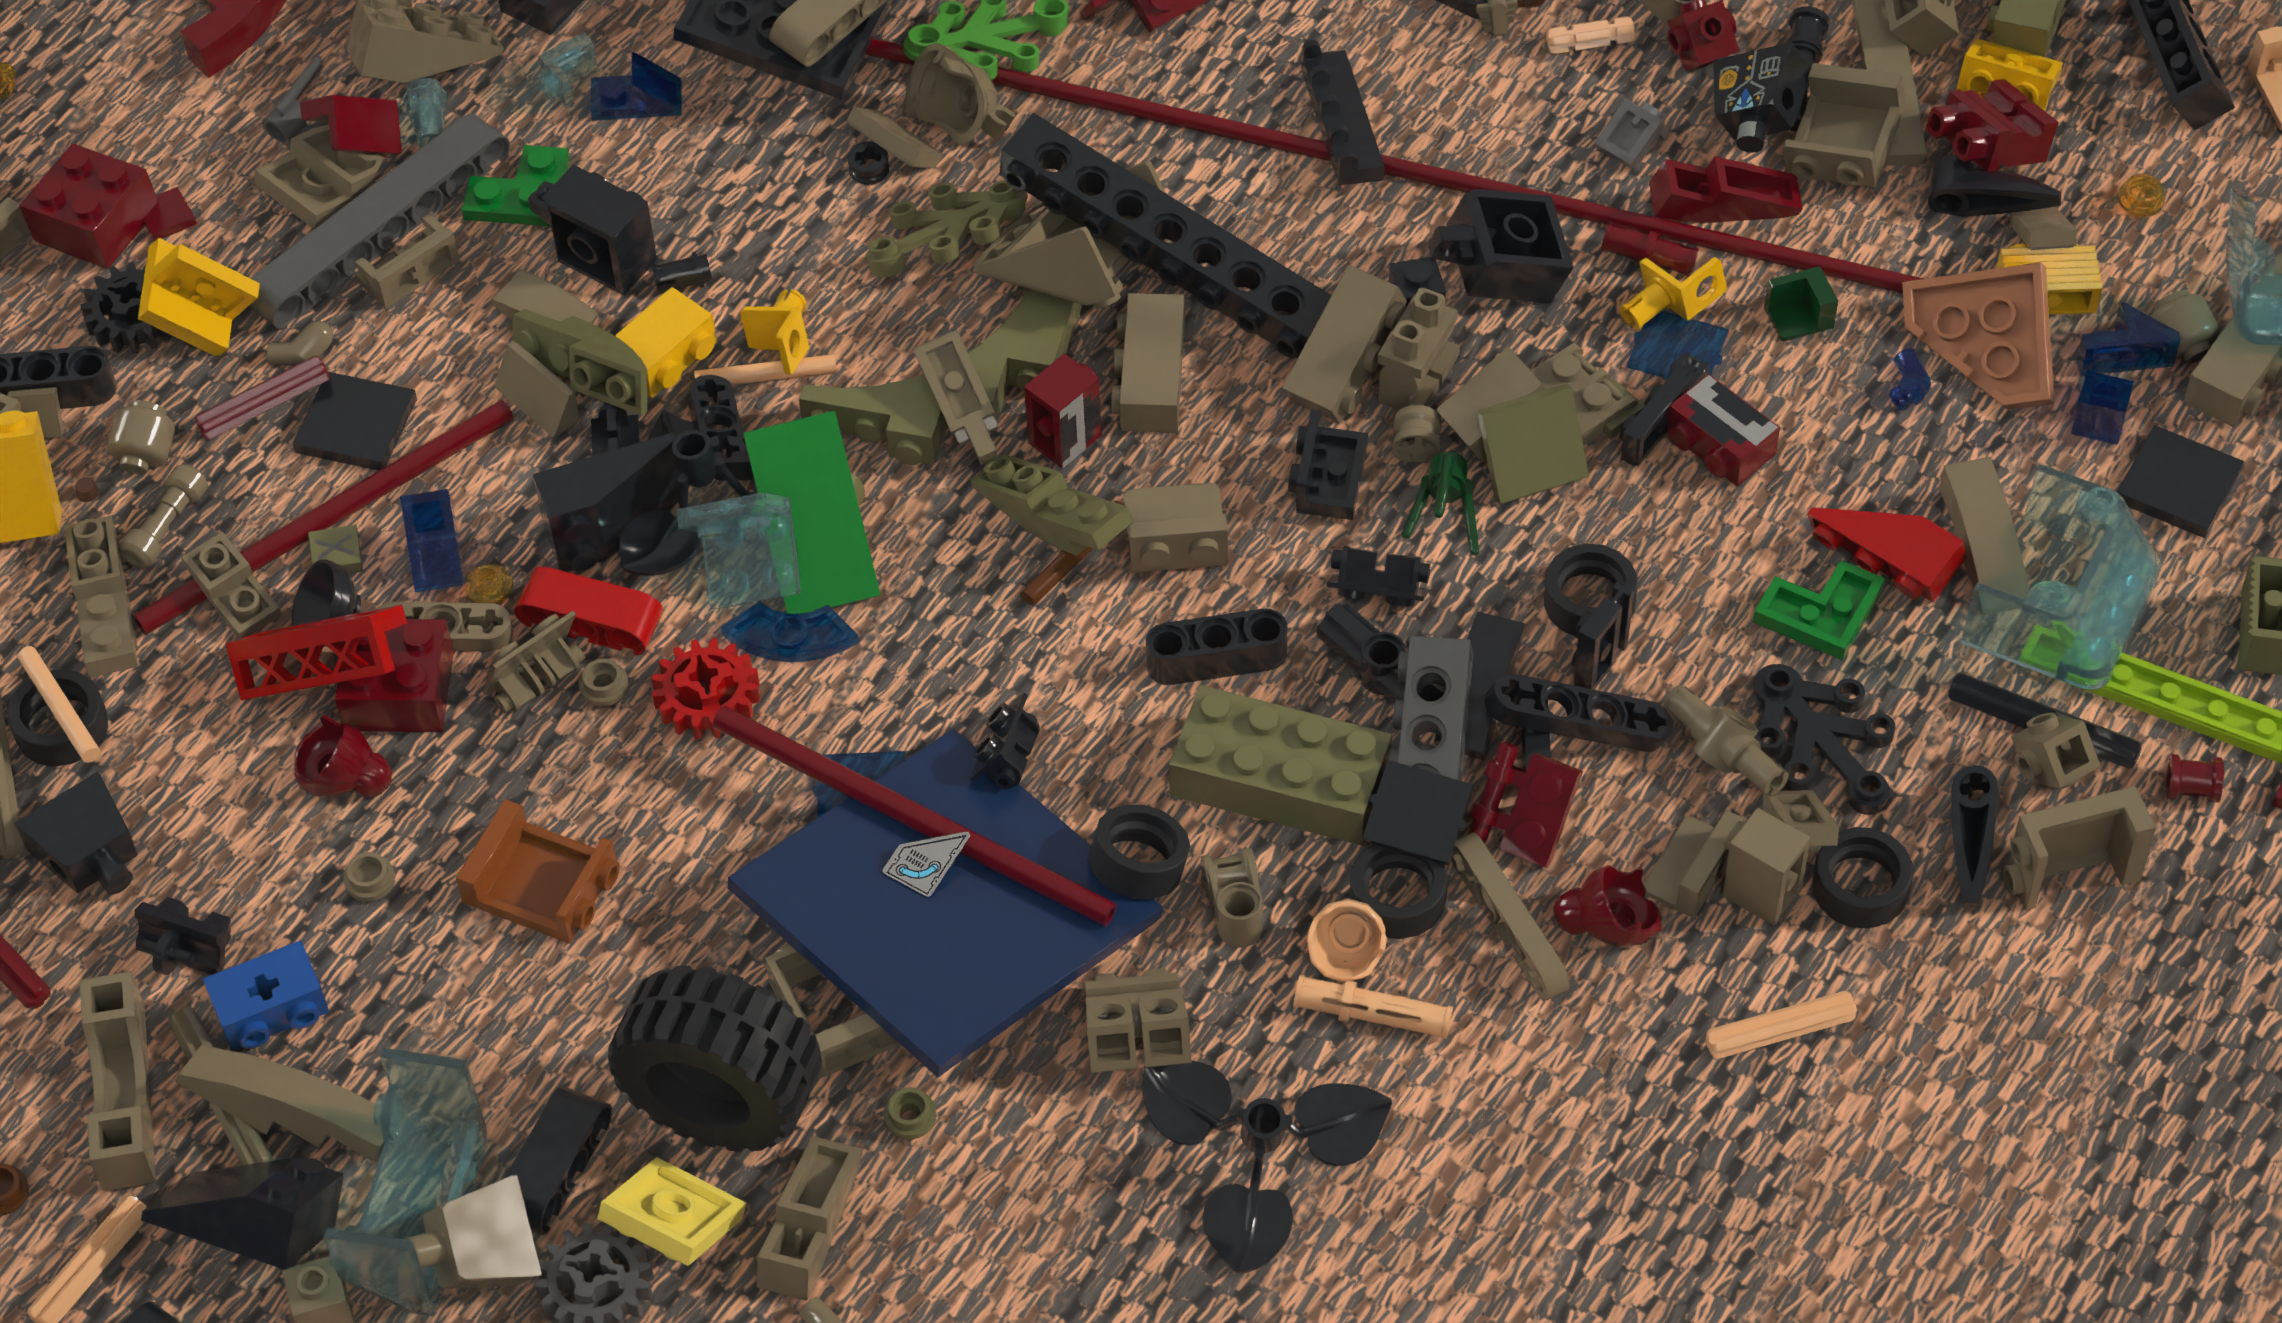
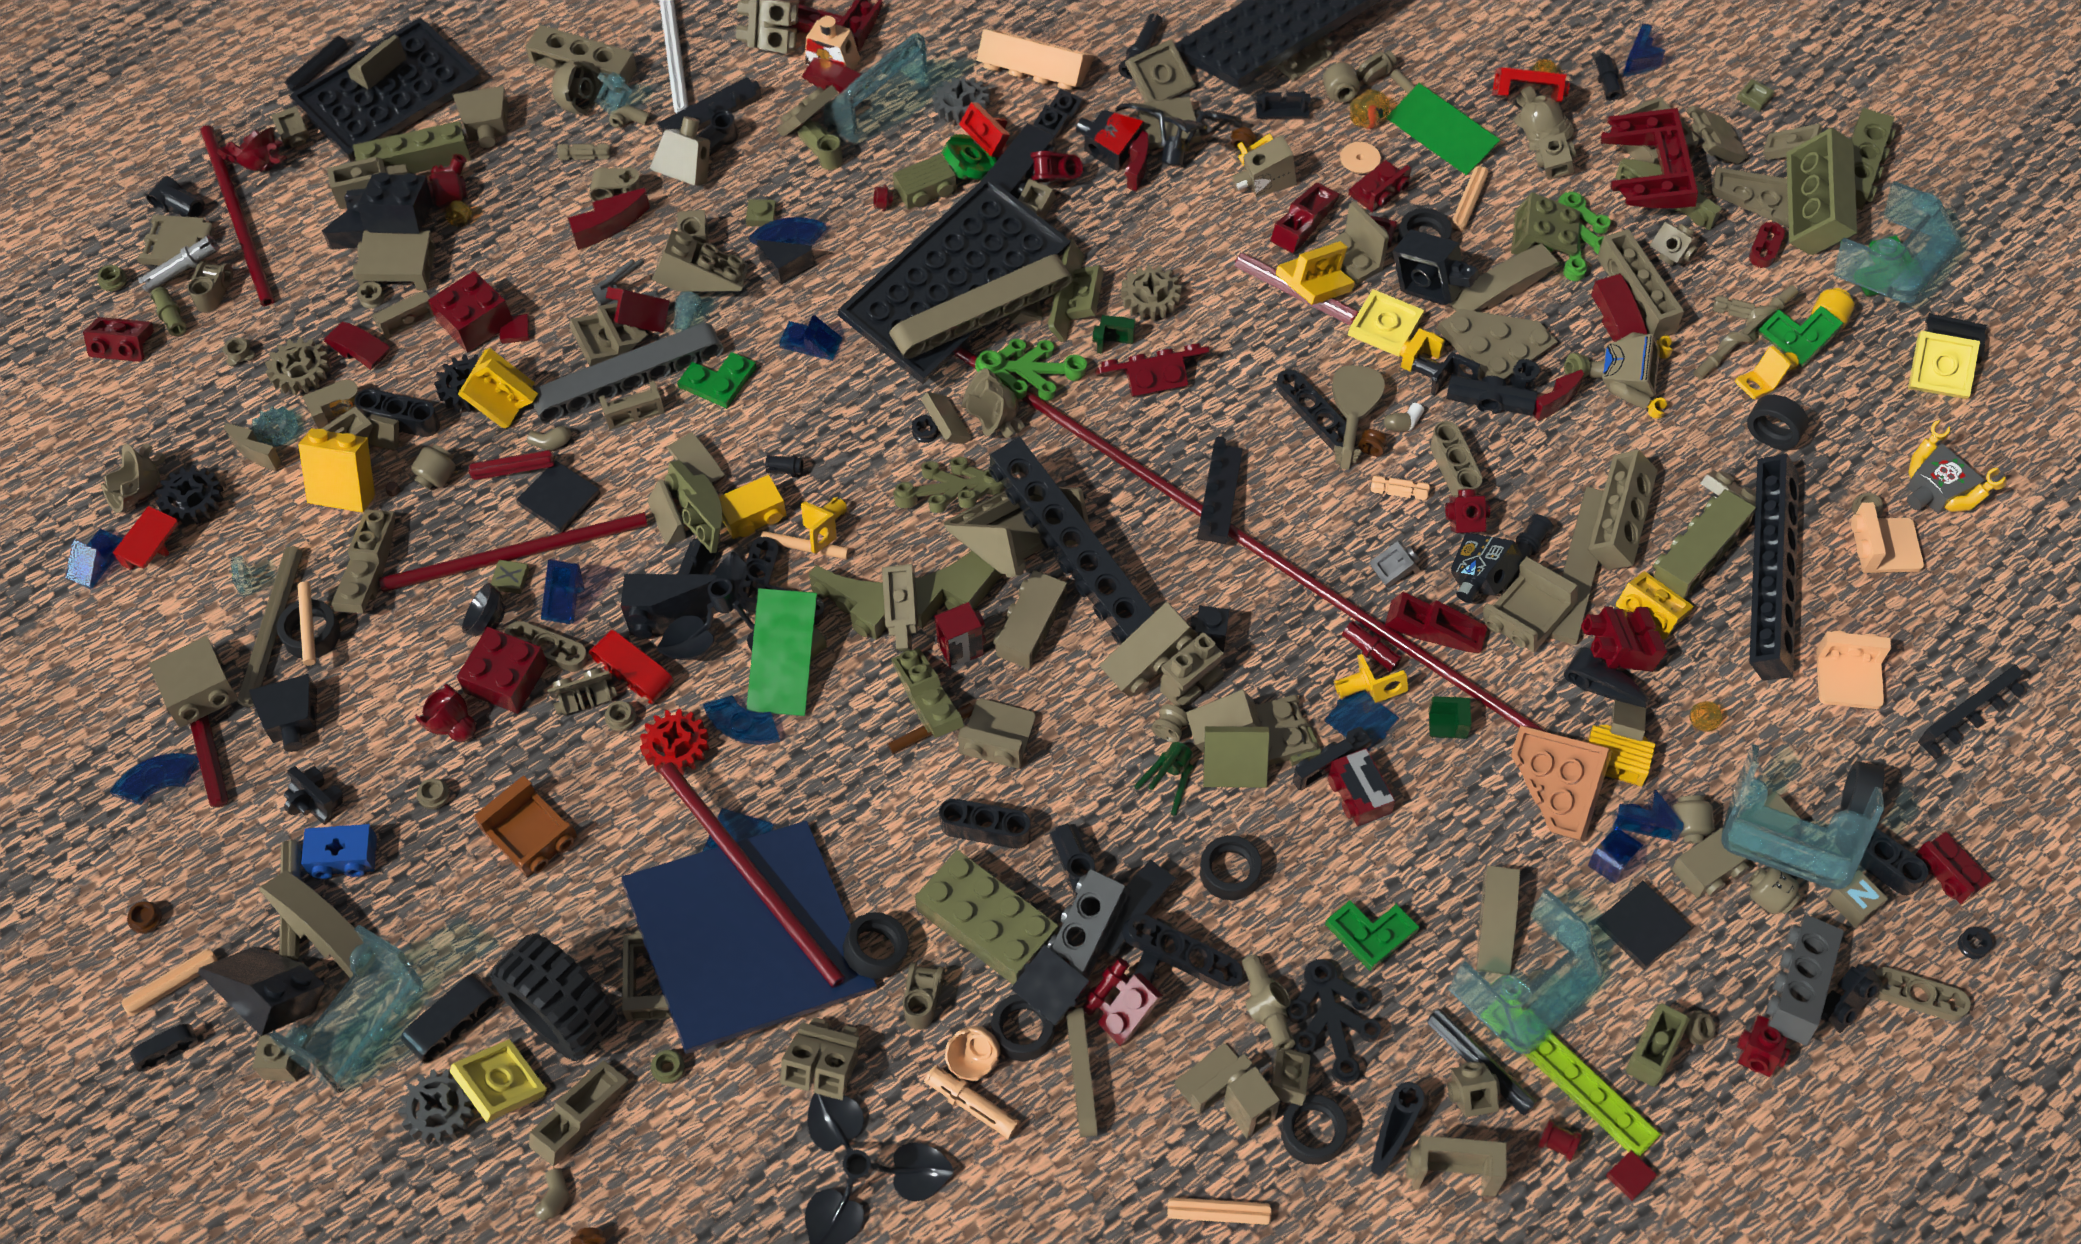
camera: 20 degrees right, 5 degrees up
(122, 1114) = (245, 845): dark tan arch -> none
(142, 545) = (443, 506): dark tan piece -> none
(231, 586) = (439, 579): dark tan slope -> none
(314, 636) = (454, 634): red fence -> none
(480, 1239) = (374, 1058): torso -> none
(491, 593) = (588, 634): clear yellow plate -> none
(565, 66) = (775, 309): clear light blue bracket -> none
(597, 228) = (744, 422): black hinge -> none
(746, 548) = (734, 662): clear light blue bracket -> none
(925, 861) = (742, 907): light grey sticker -> none
(1007, 744) = (820, 849): black hinge -> none
(1329, 469) = (1105, 727): black bracket -> none
(1397, 582) = (1115, 820): black hinge -> none
(1505, 246) = (1277, 616): black hinge -> none
(1592, 905) = (1134, 1084): dark red piece -> none
(1601, 636) = (1216, 905): black plate -> none
(1900, 545) = (1441, 910): red slope -> none
(1914, 381) = (1500, 796): clear blue arm -> none

